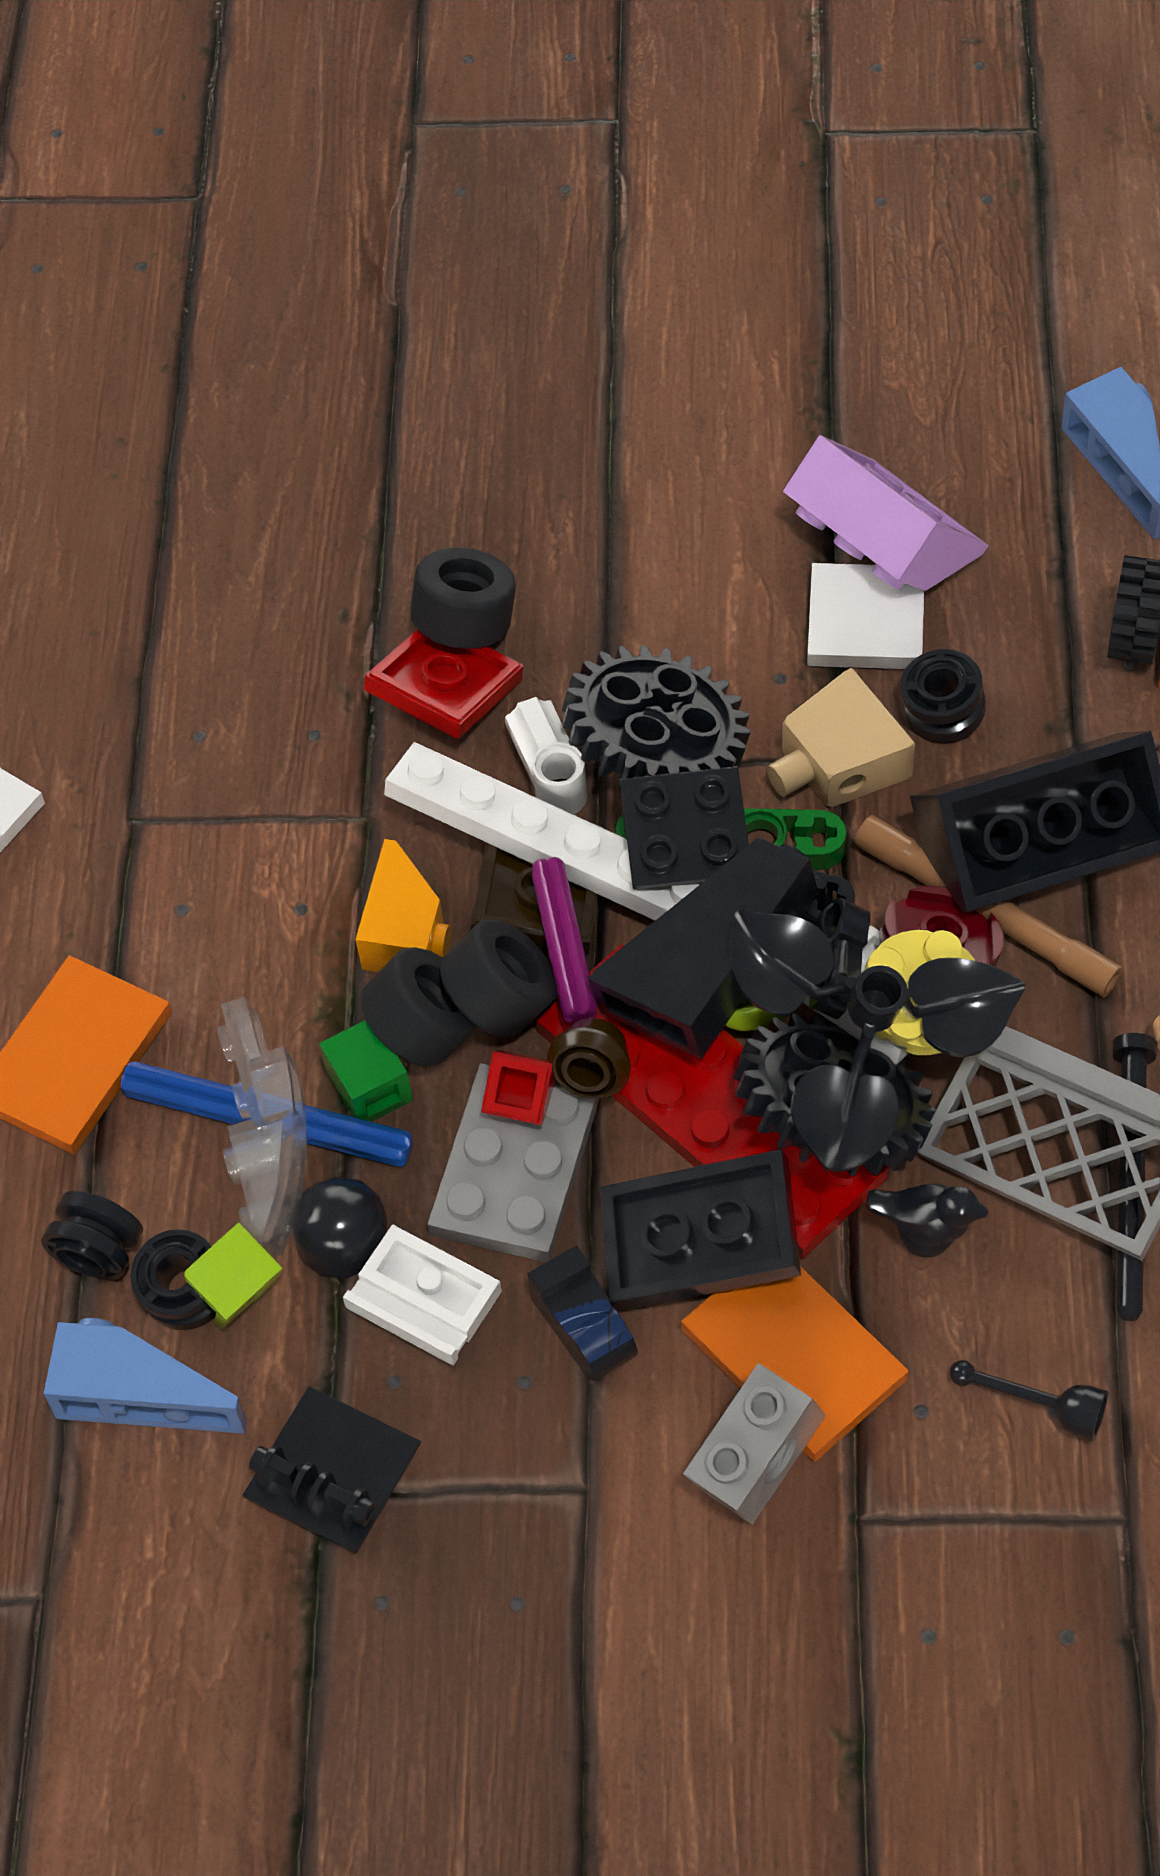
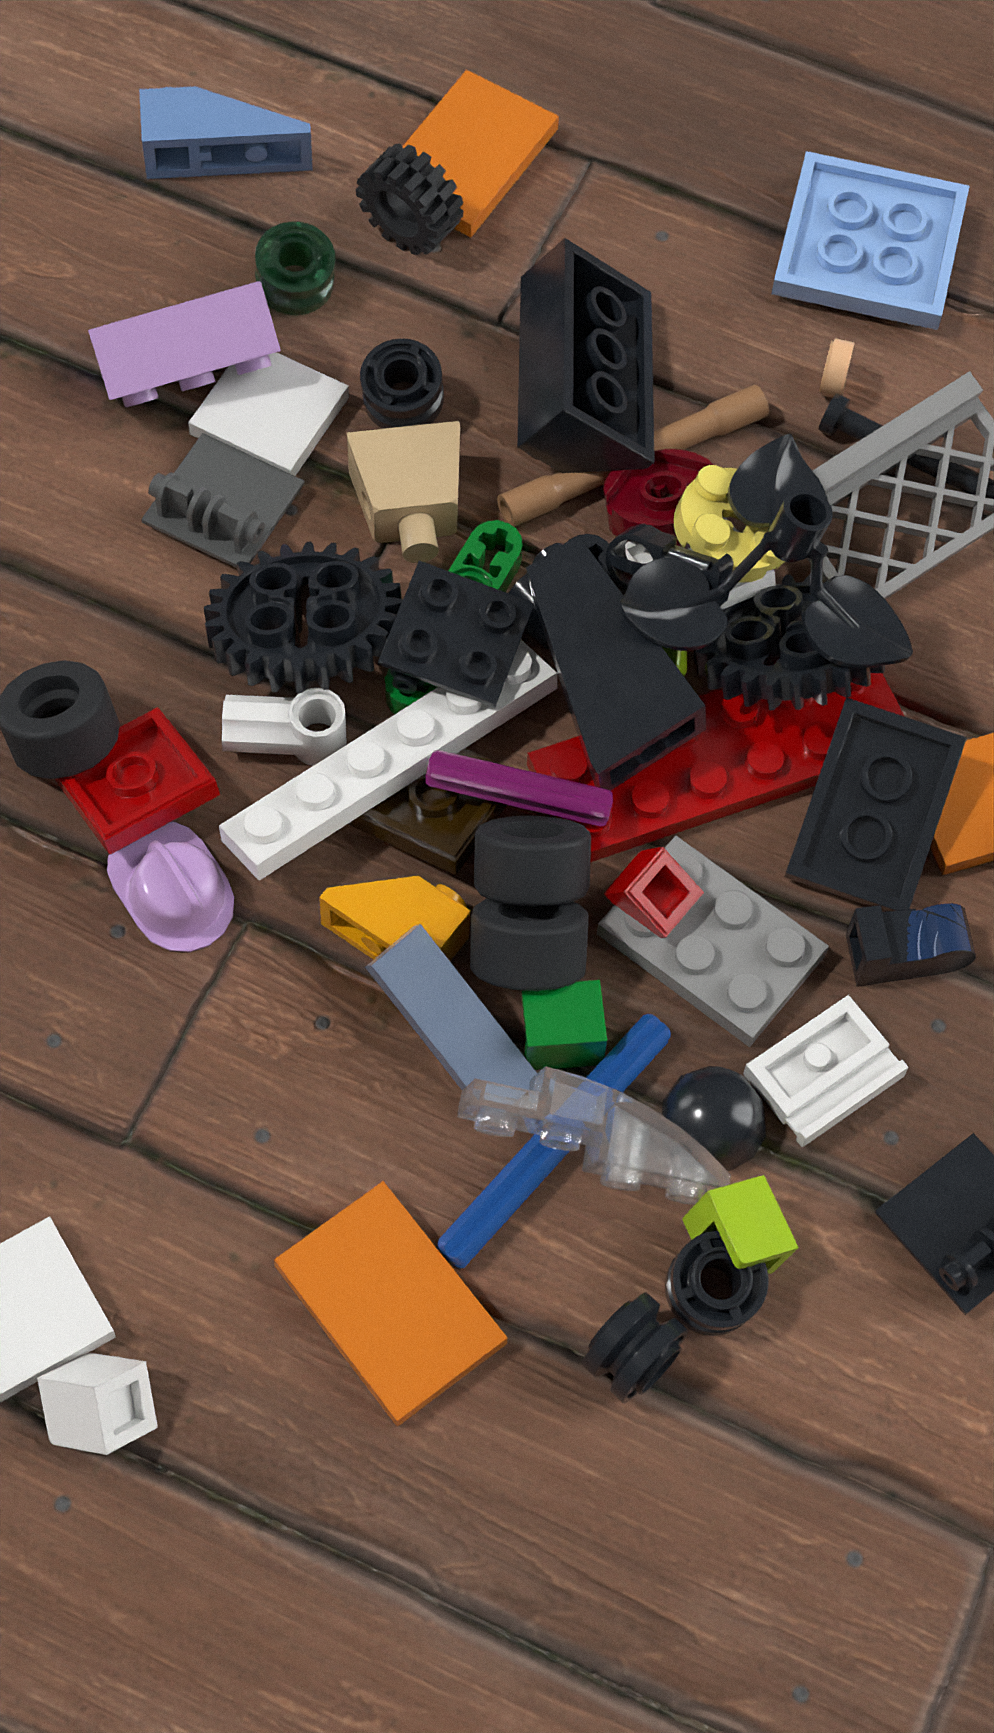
camera: 75 degrees left, 5 degrees up
(120, 1379) = (803, 1373): medium blue slope -> none
(322, 979) = (448, 1013): none -> sand blue tile
(363, 750) = (173, 888): none -> lavender piece
(590, 1059) = (666, 813): dark brown cone -> none
(751, 621) = (221, 501): none -> dark grey hinge
(928, 1215) = (942, 622): black animal -> none
(1019, 543) = (295, 245): none -> clear green wheel

